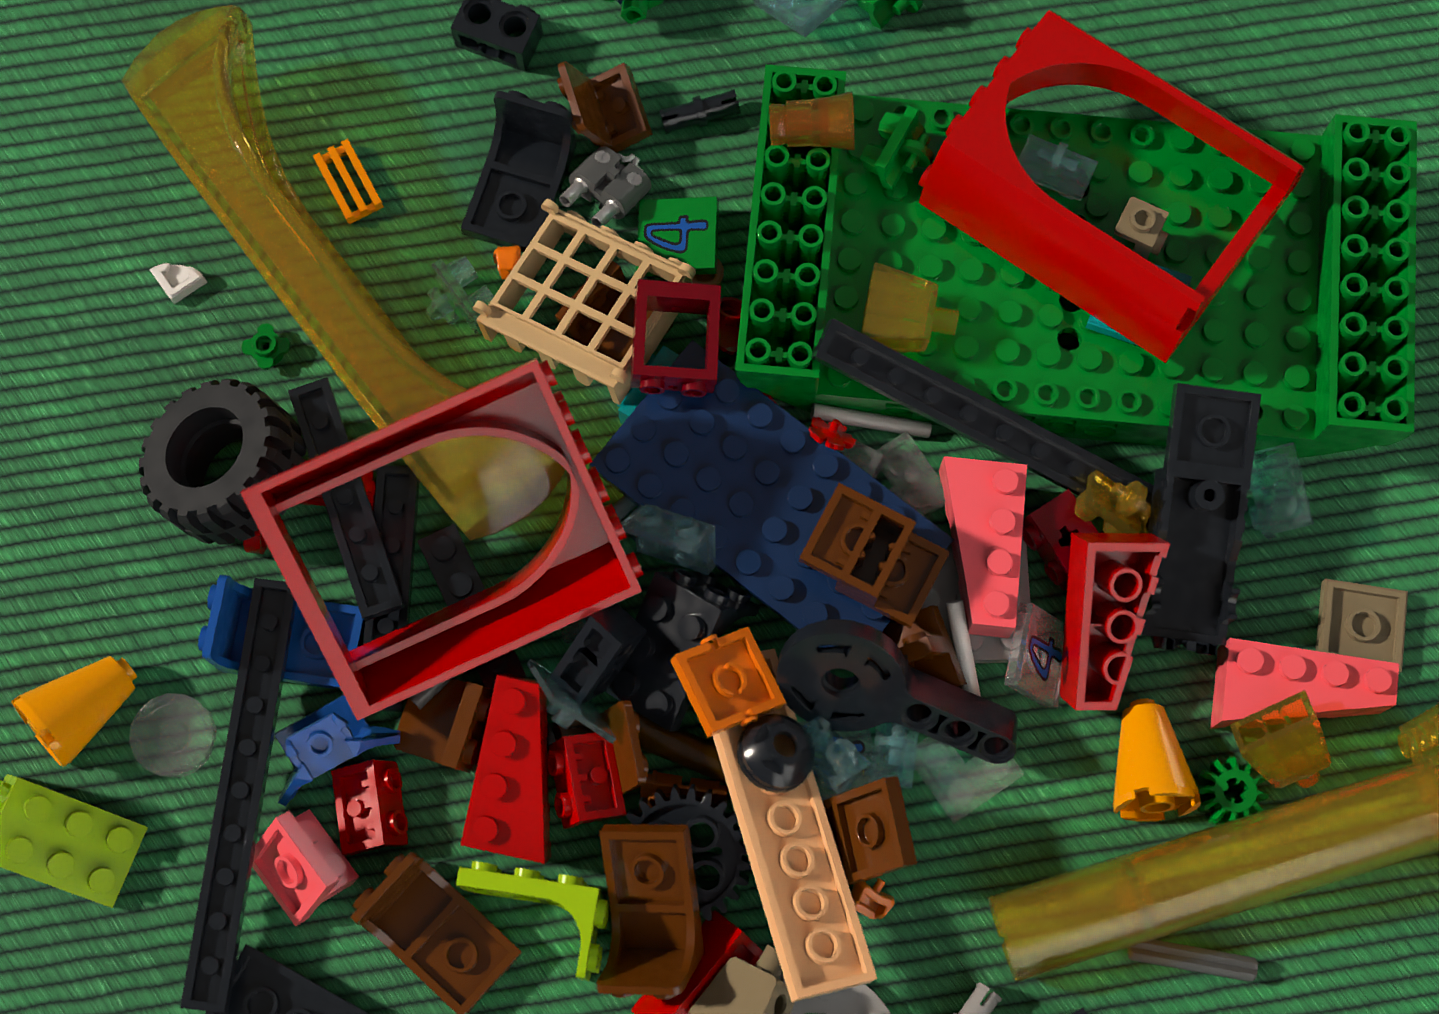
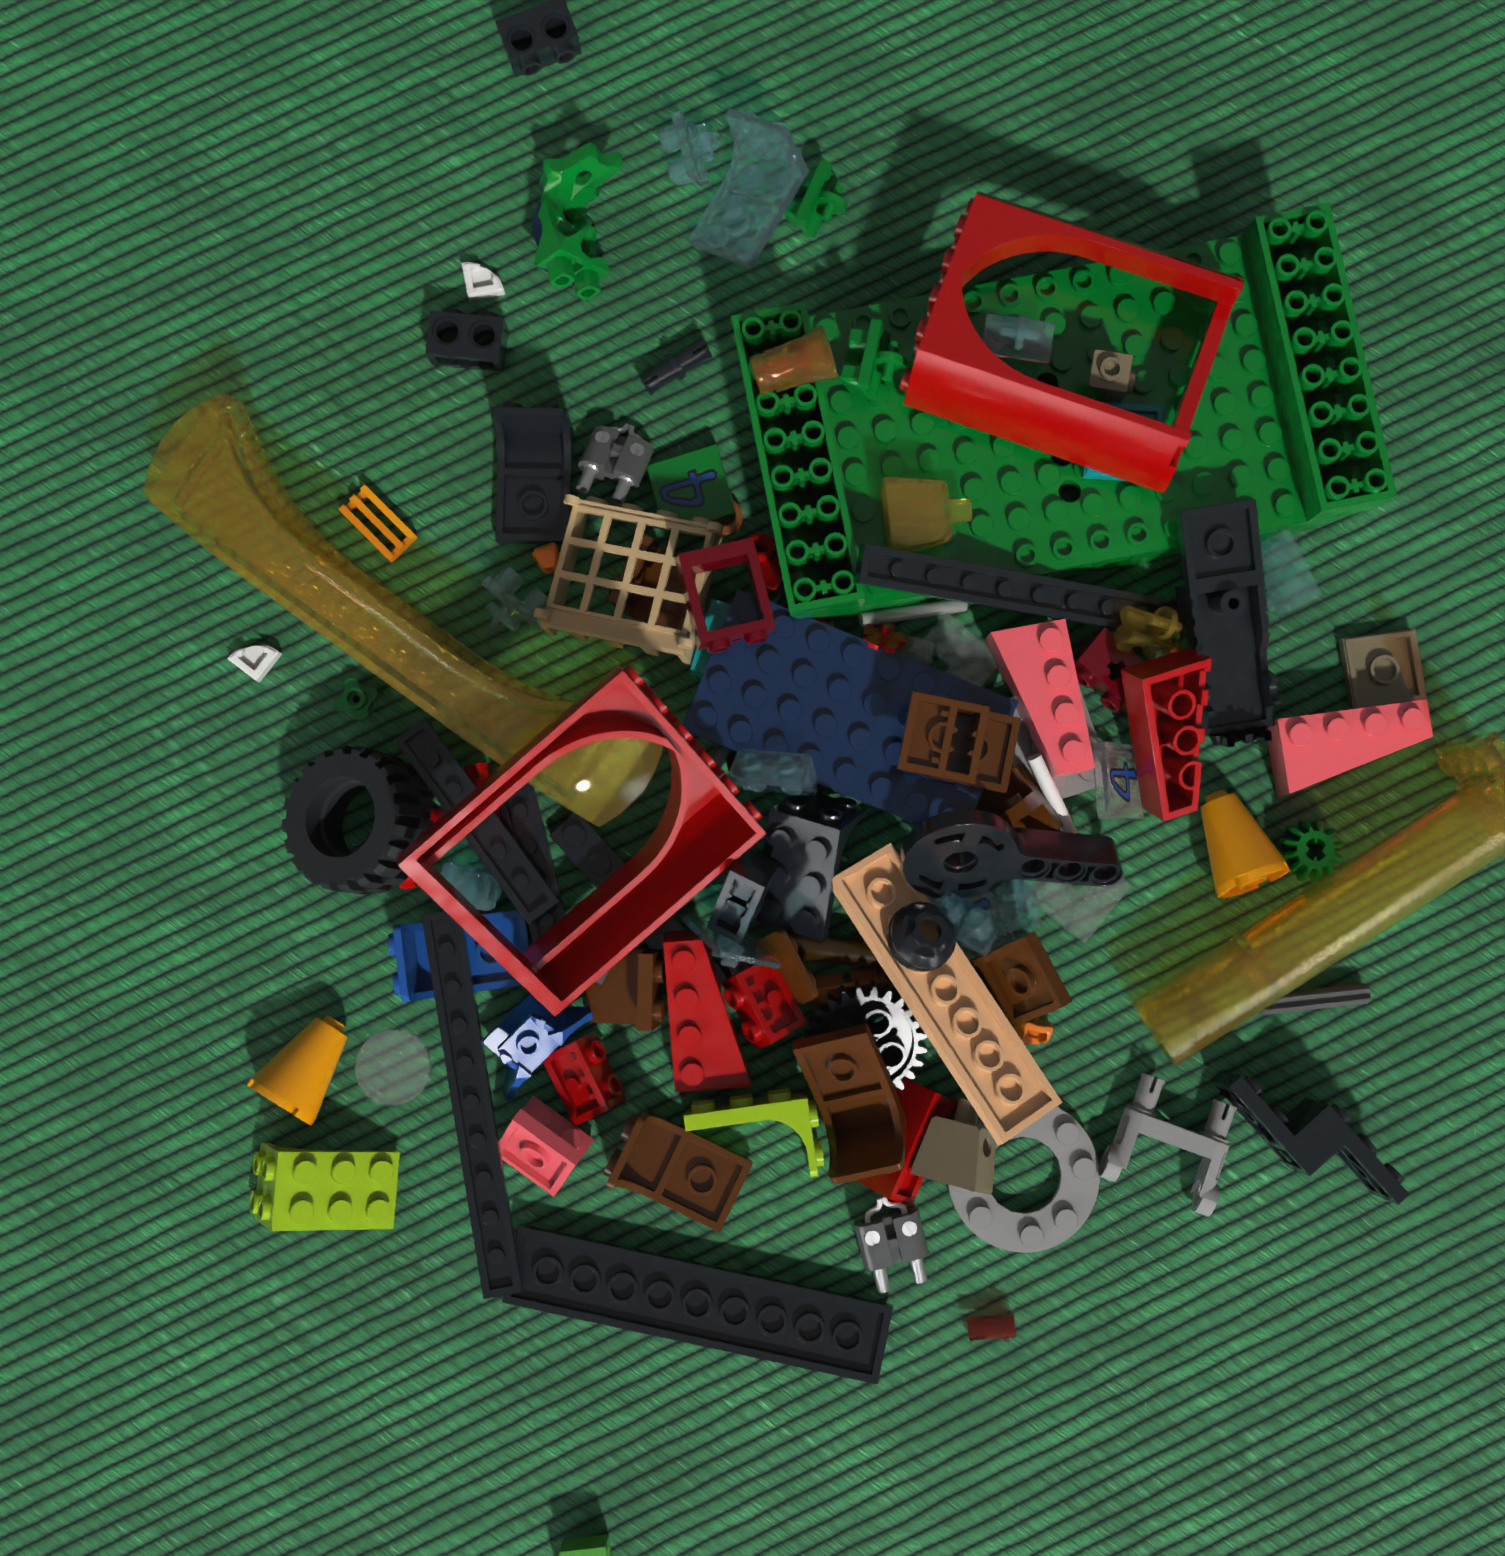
camera: 15 degrees left, 10 degrees up
(323, 566) = (473, 883): none -> clear light blue gear
(606, 106) = (589, 387): reddish brown bracket -> none
(727, 681) = (863, 889): orange plate -> none
(1284, 742) = (1346, 796): clear yellow torso -> none

